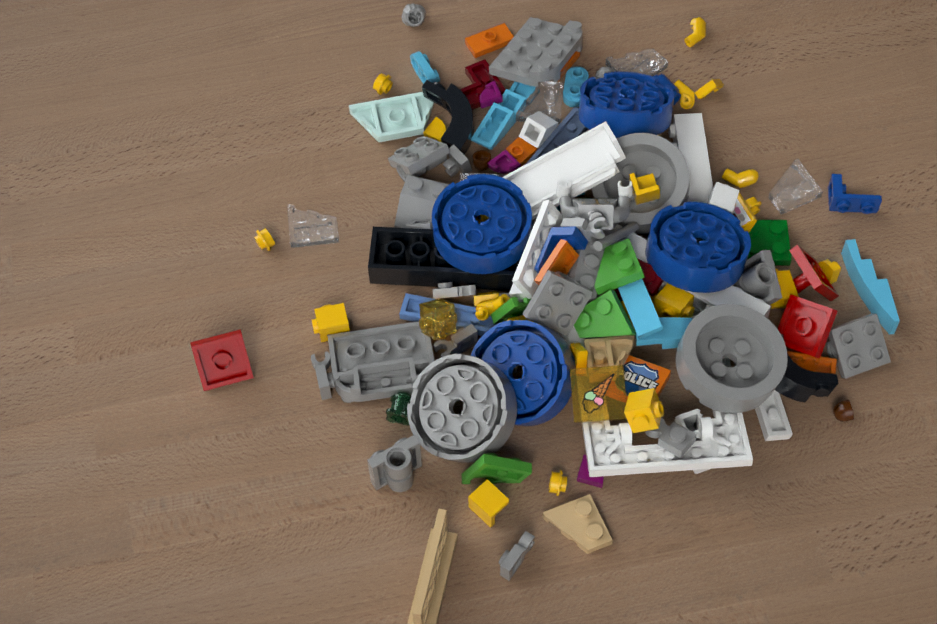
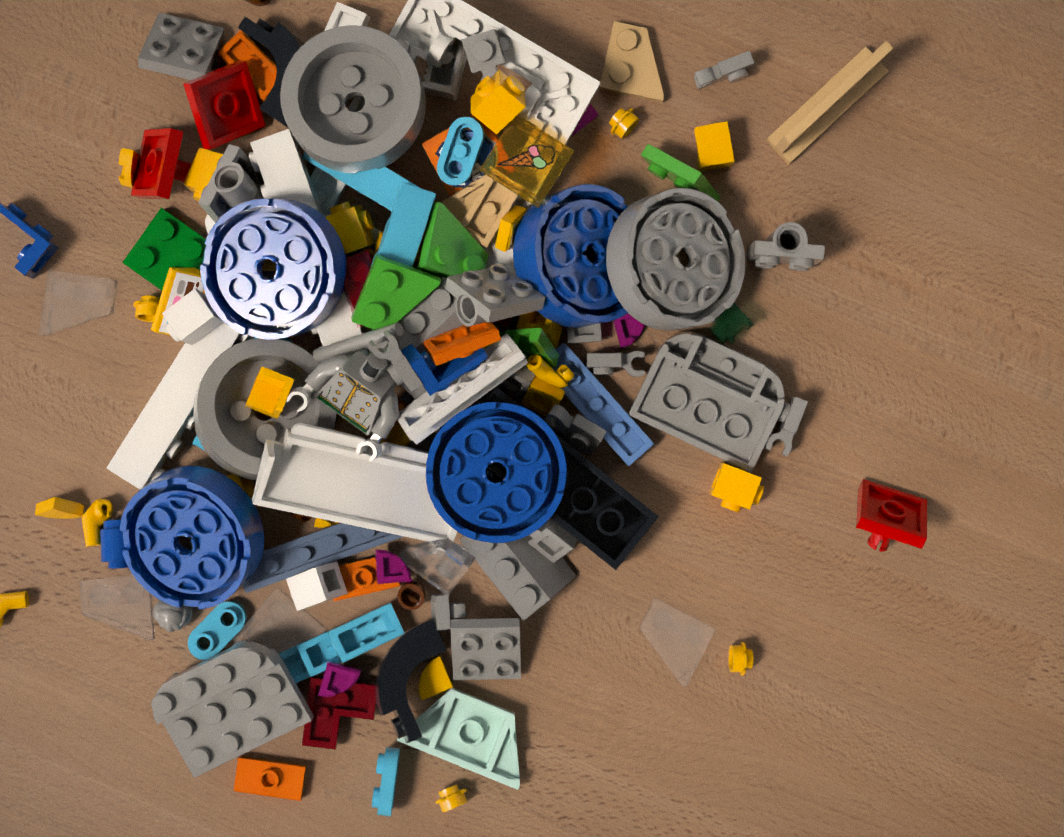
camera: 145 degrees left, 30 degrees up
(437, 319) = (624, 393): clear yellow brick -> none
(645, 376) = (459, 150): none -> medium azure plate
(741, 179) = (126, 353): yellow arm -> none
(873, 291) = (106, 98): medium azure slope -> none

